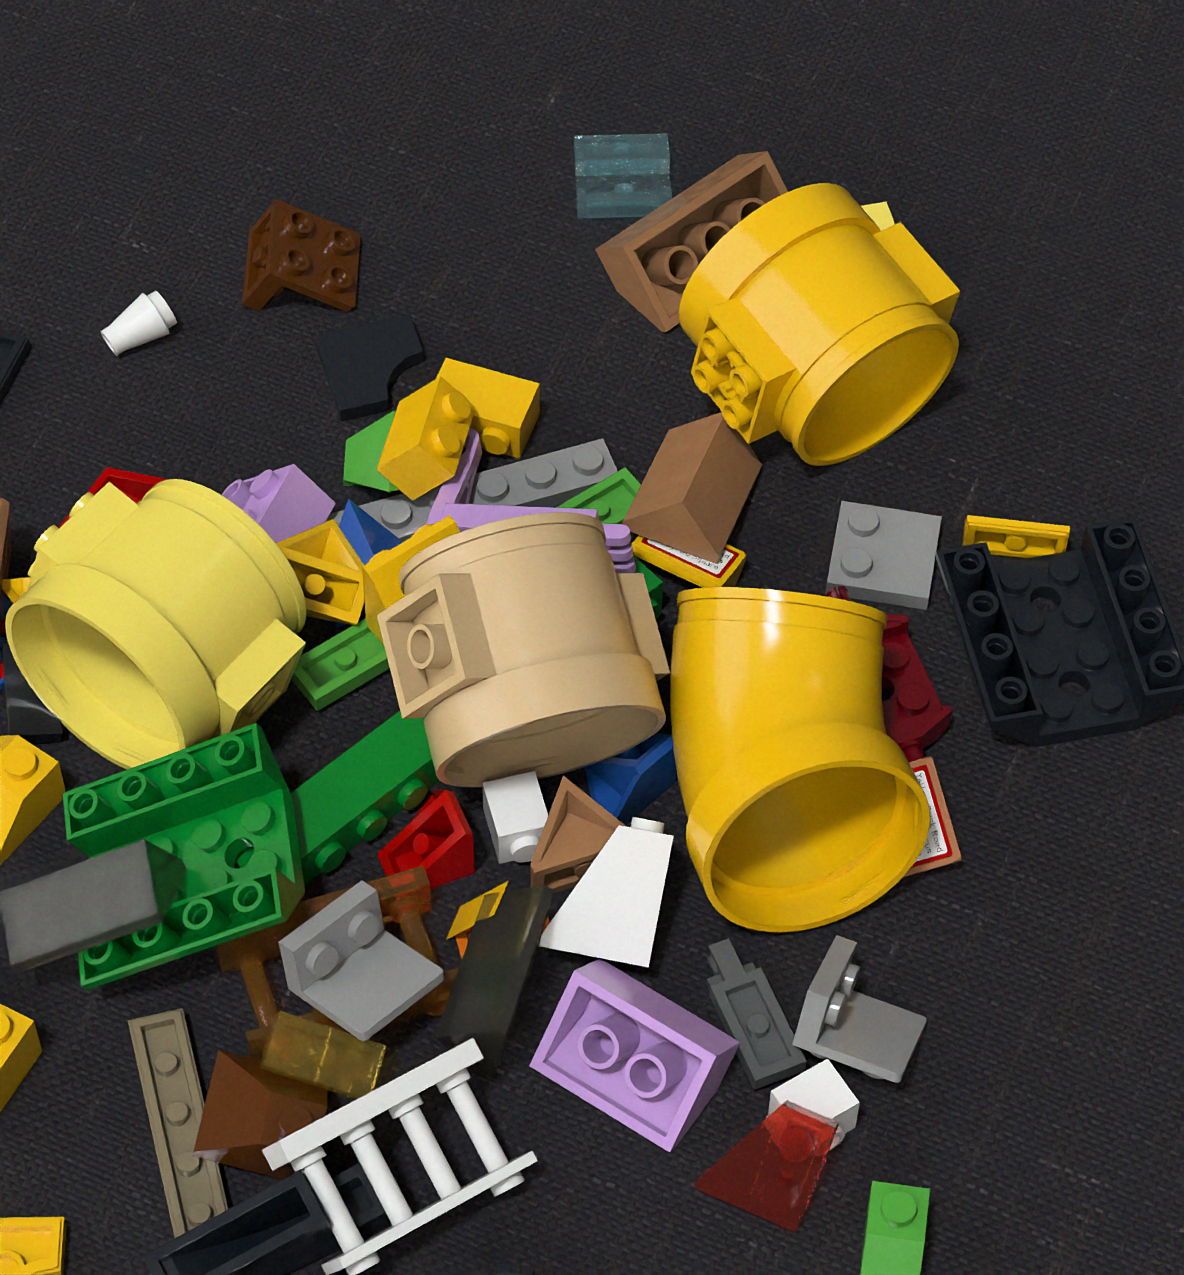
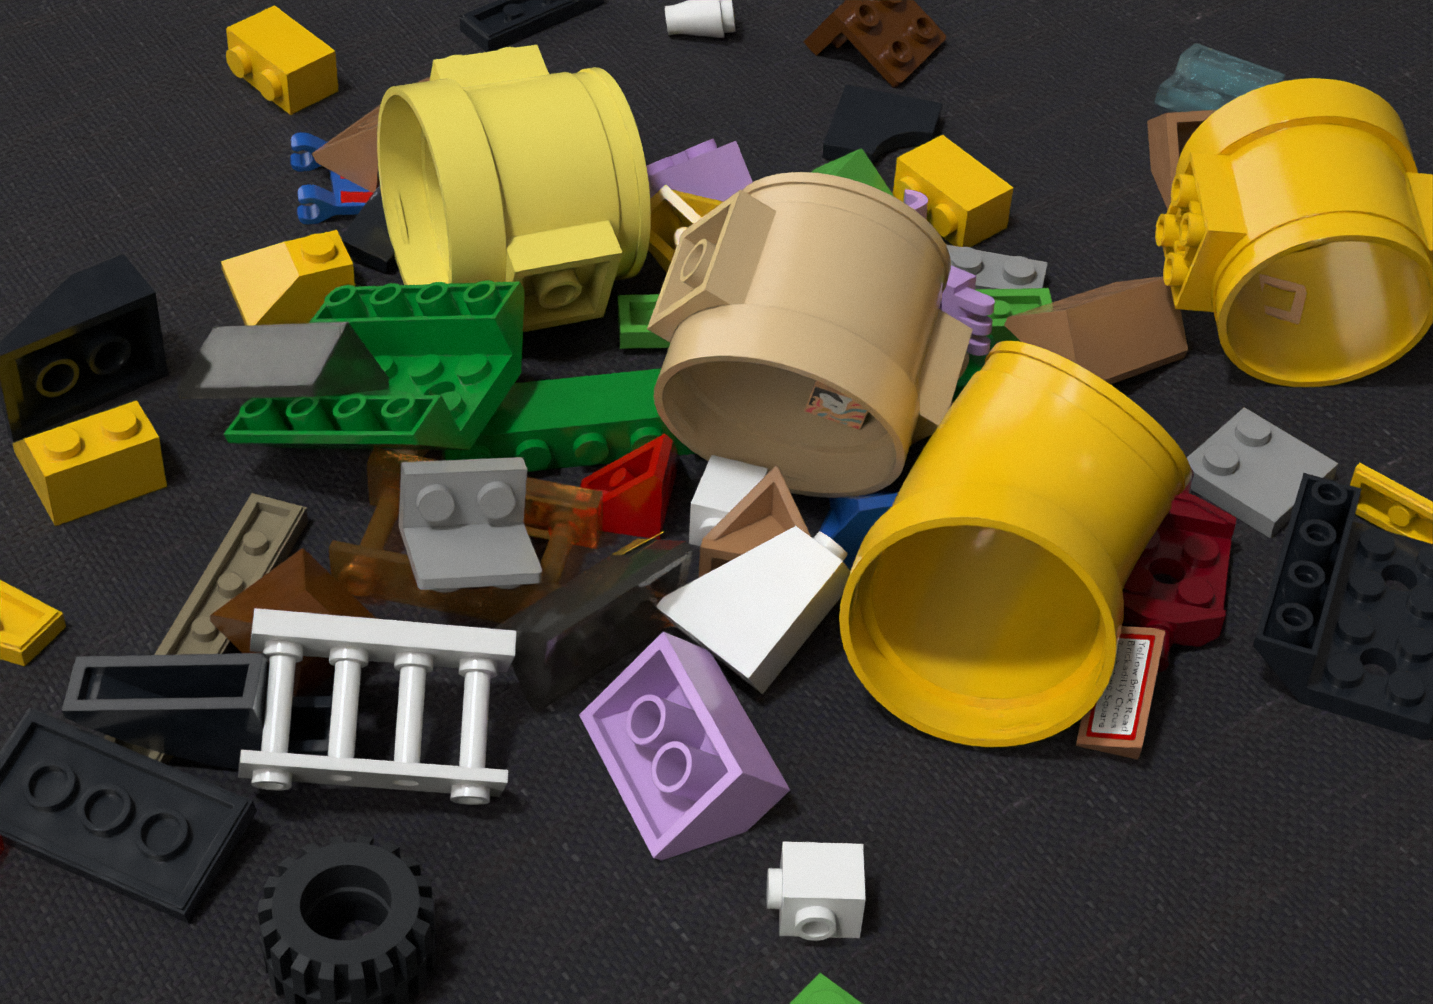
camera: 30 degrees right, 10 degrees down
(322, 1056) = (377, 583): clear yellow hinge -> none
(426, 438) = (888, 165): yellow brick -> none
(752, 1017) = (823, 778): dark grey hinge -> none
(774, 1166) = (739, 914): clear red wing -> none
(853, 1026) = (901, 821): light grey bracket -> none

